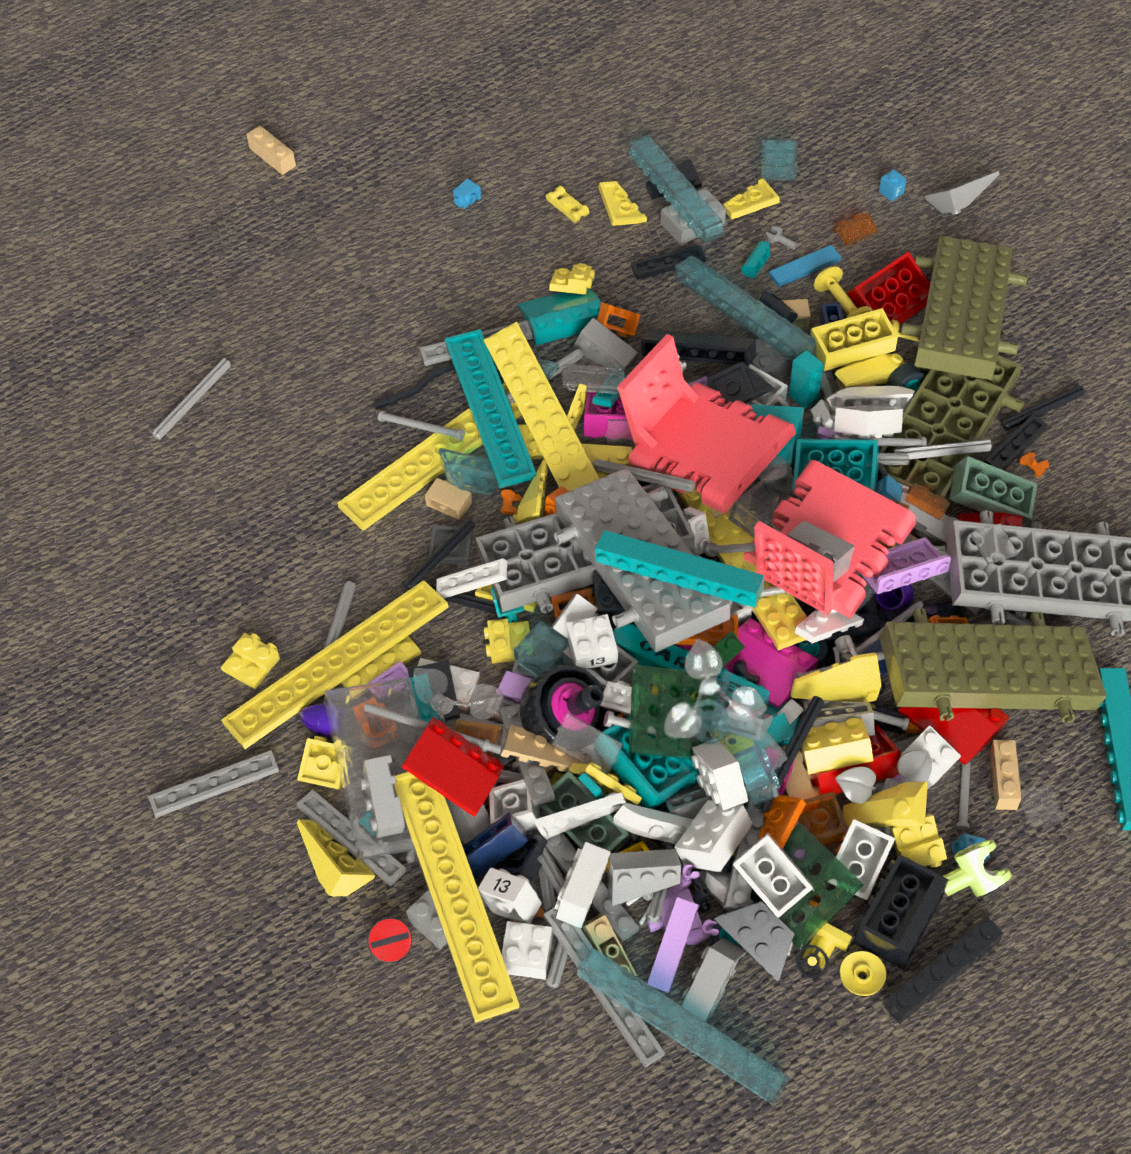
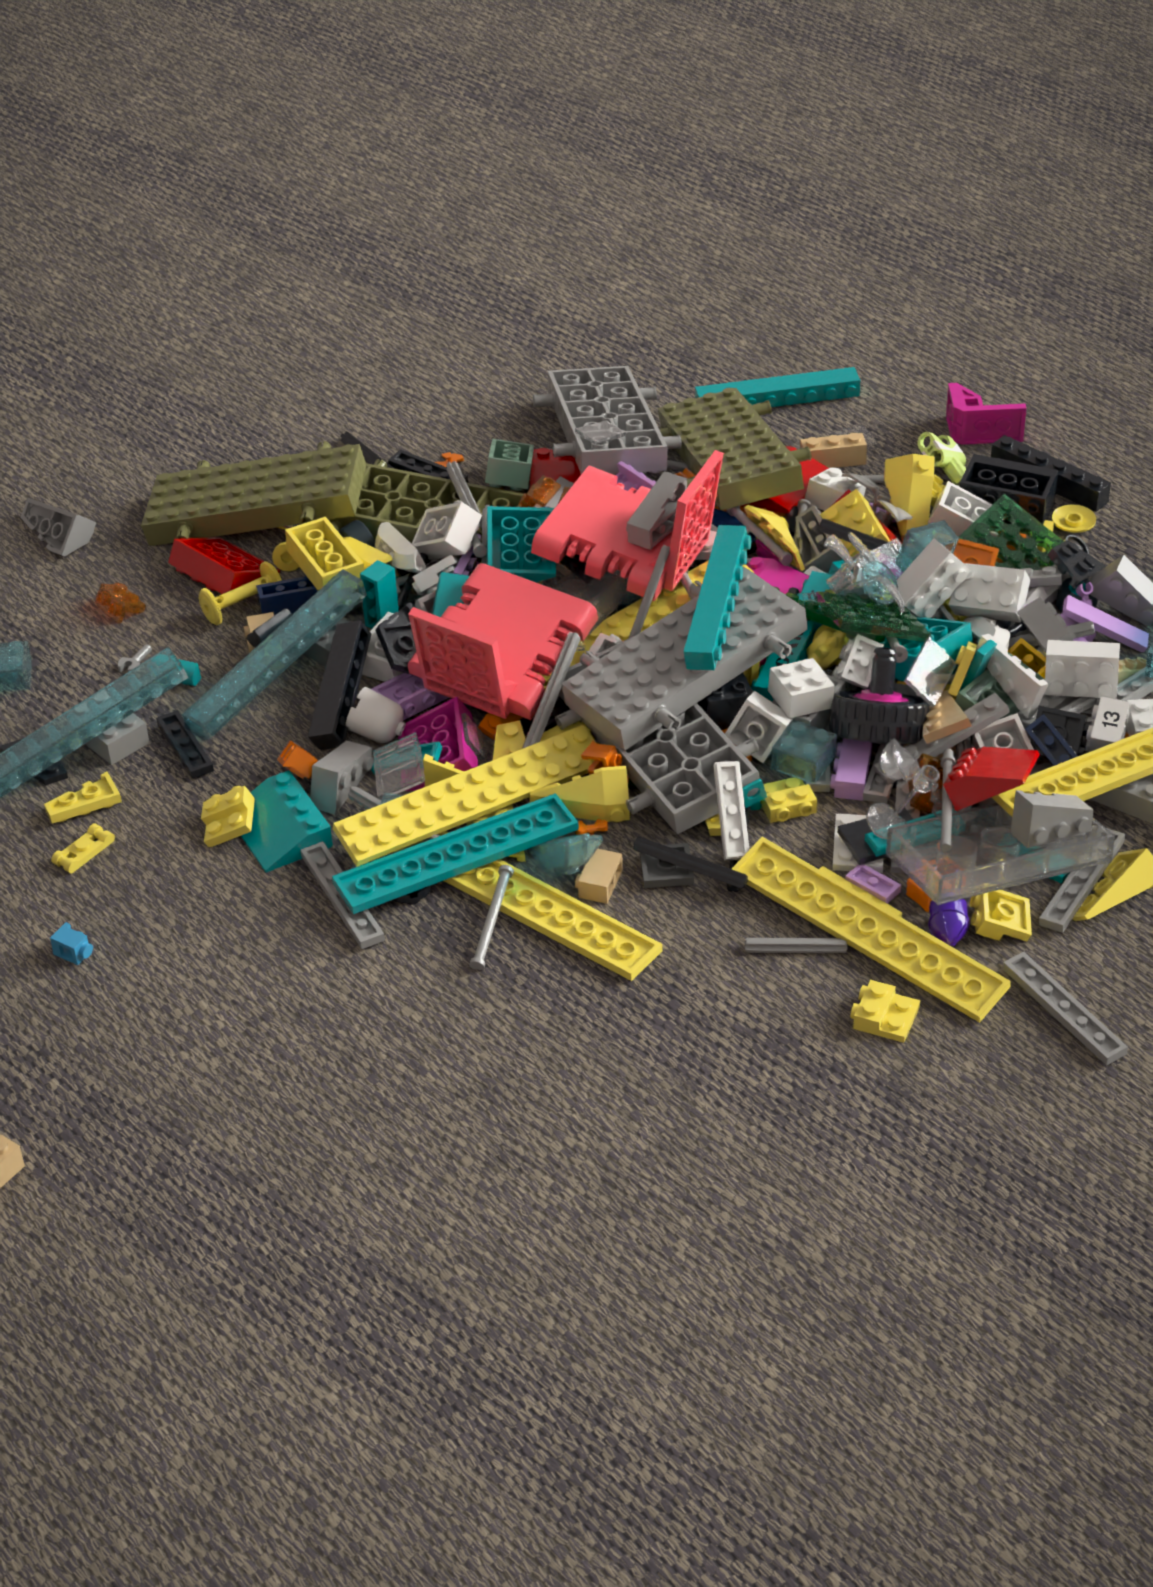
camera: 100 degrees left, 15 degrees down
(201, 388) = (481, 1168): light grey axle -> none
(393, 399) = (446, 958): black bar -> none
(753, 199) = (67, 684): light yellow wing -> none
(773, 875) = (1022, 540): white brick -> none
(804, 265) = (180, 637): dark azure tile -> none
(892, 185) = (49, 575): dark azure brick -> none
(1052, 903) = (978, 423): none -> dark pink bracket

